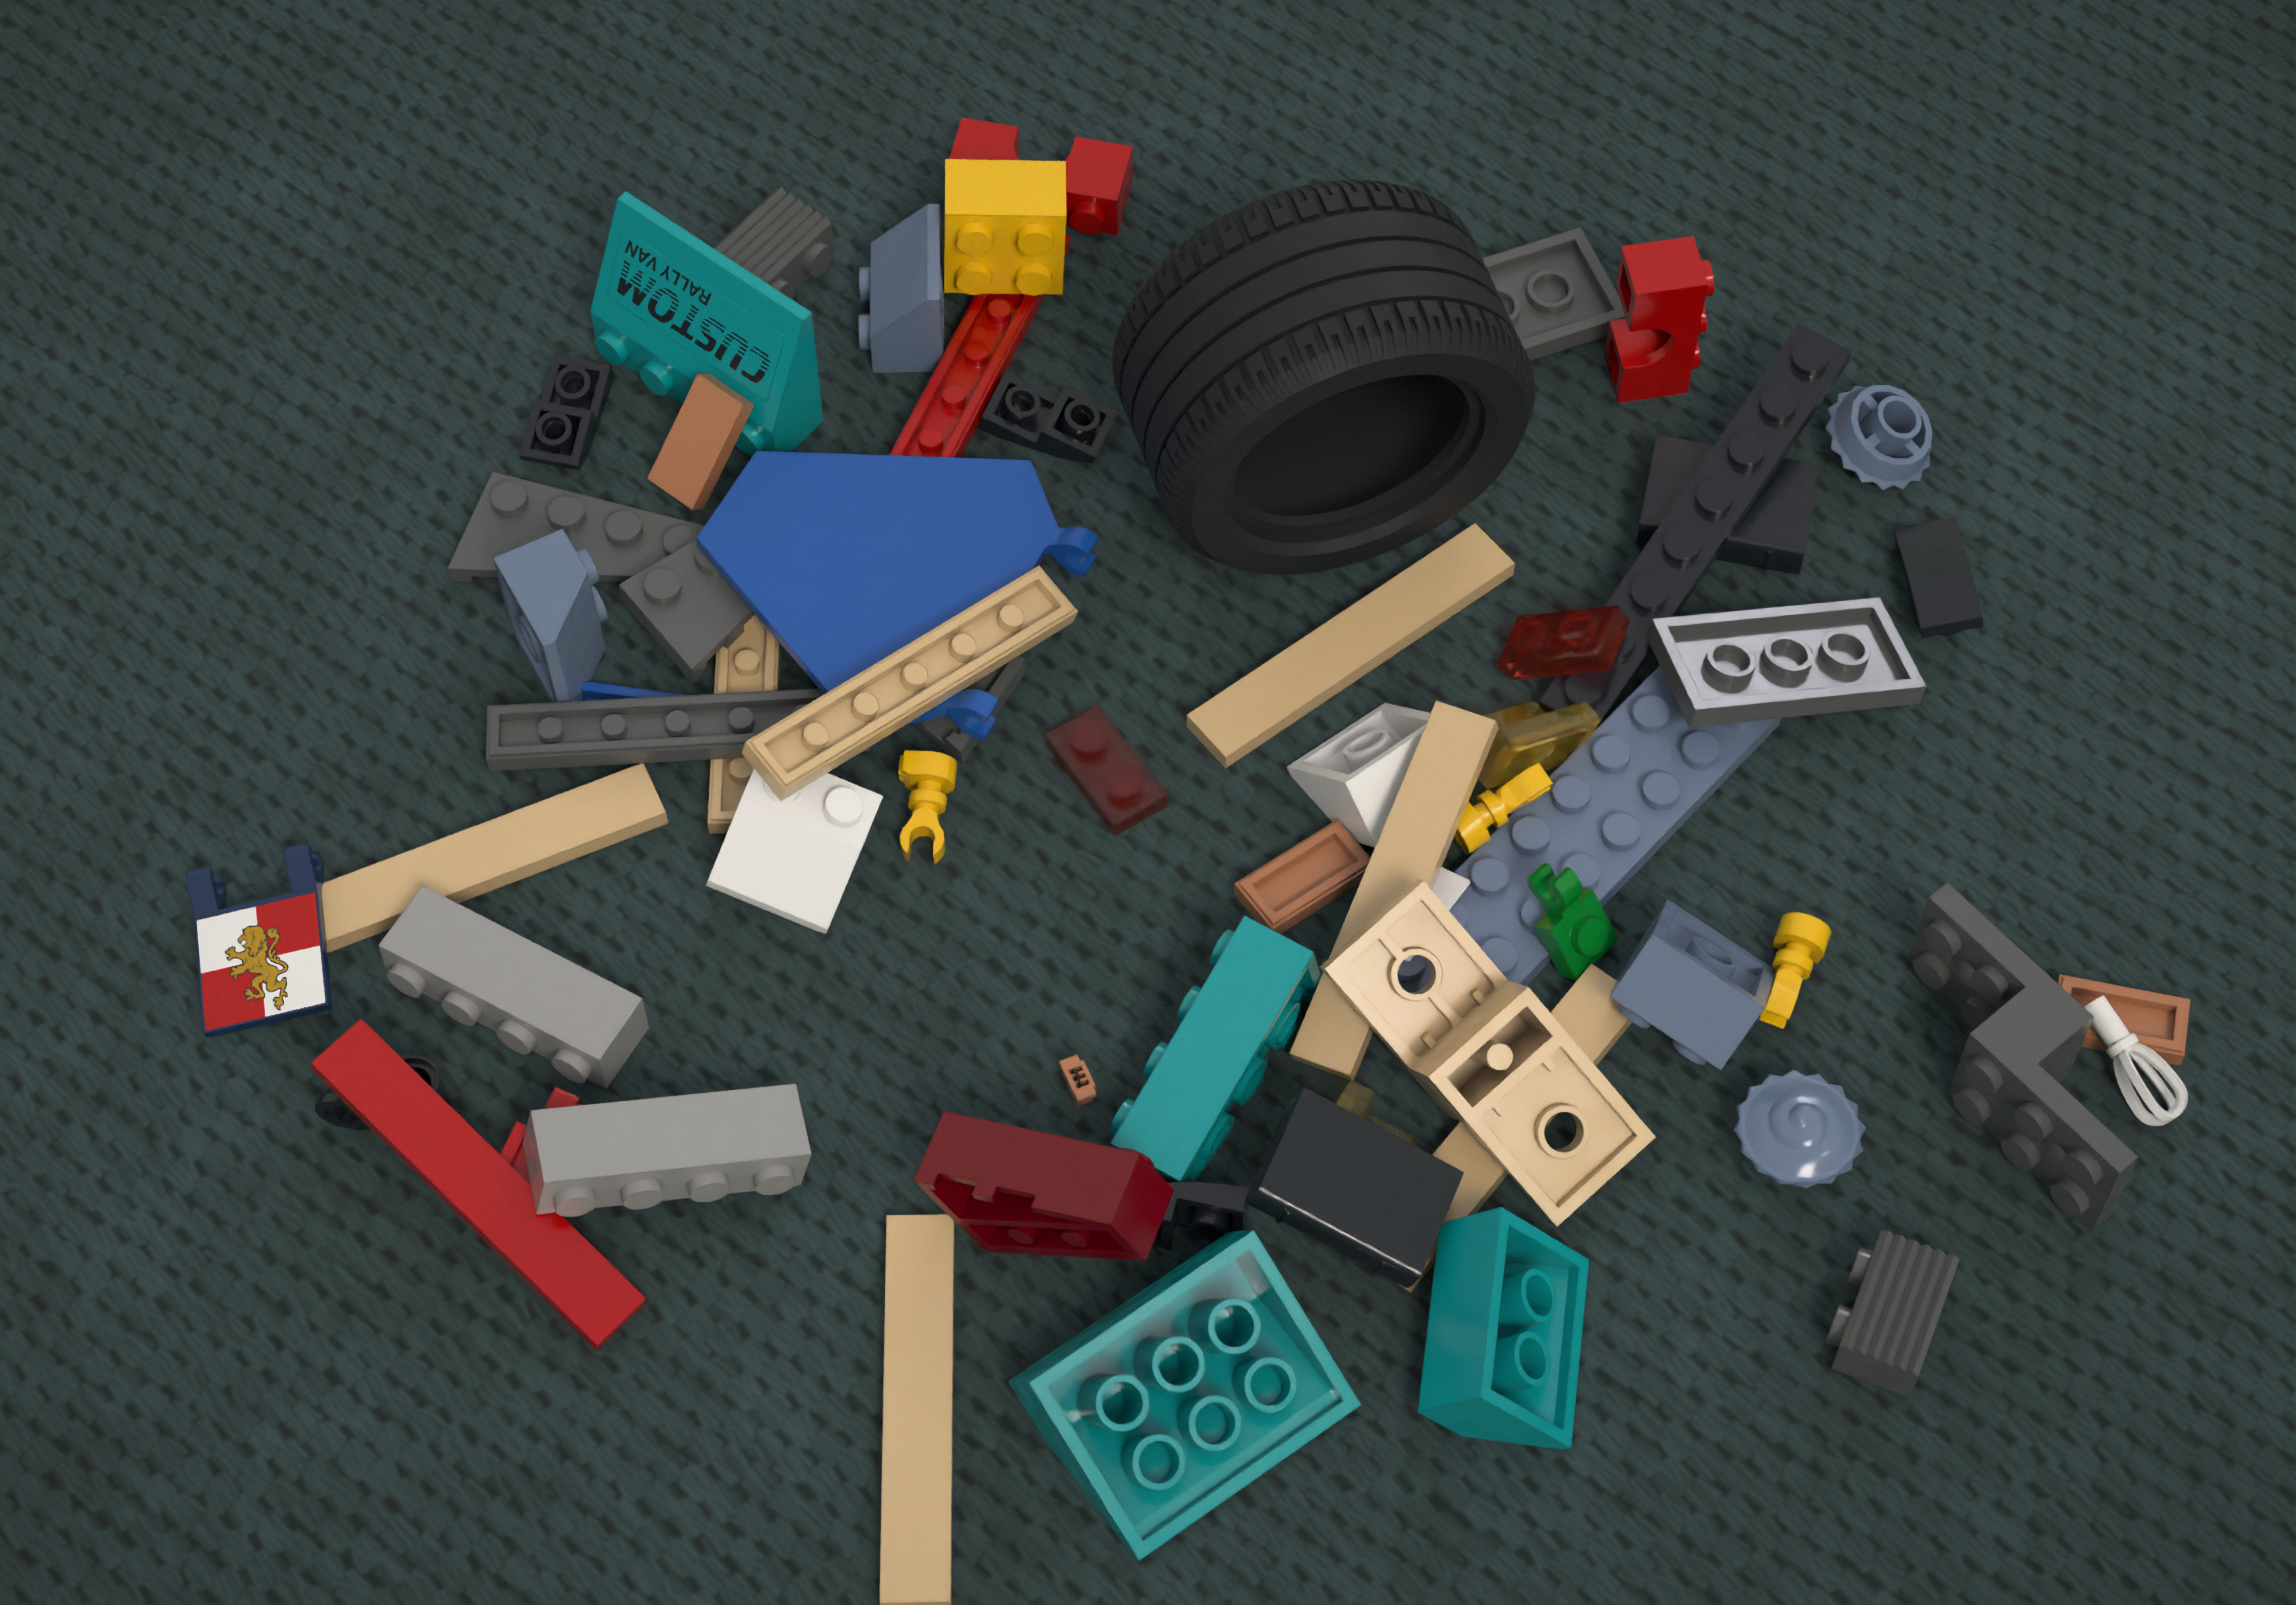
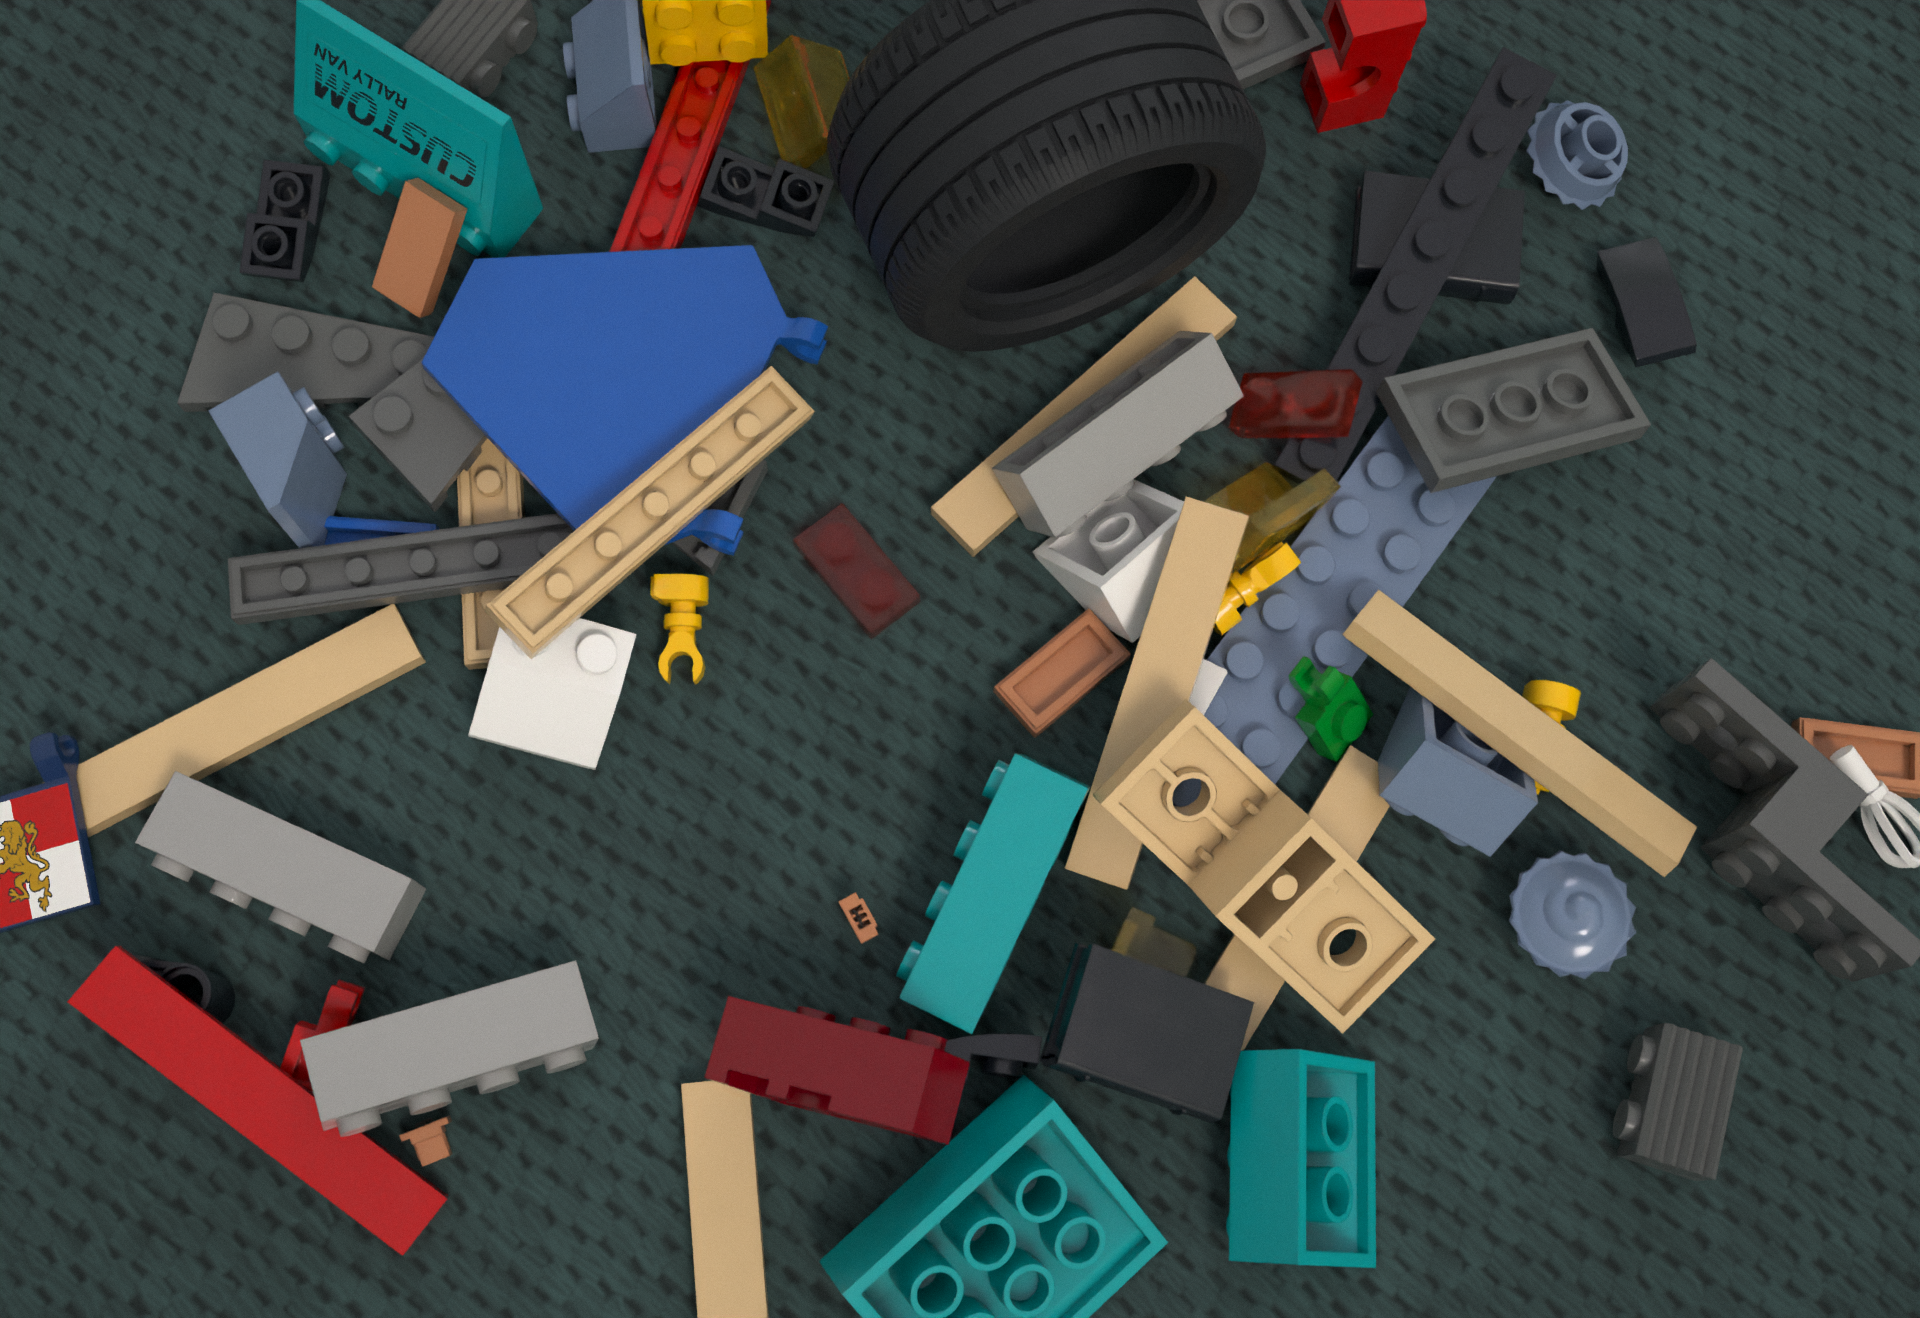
camera: 10 degrees left, 15 degrees up
(632, 1249) = (429, 1140): none -> nougat piece
(1084, 331) = (800, 94): none -> clear yellow panel
(1380, 656) = (1119, 434): none -> light grey brick
(1759, 953) = (1522, 733): none -> tan tile

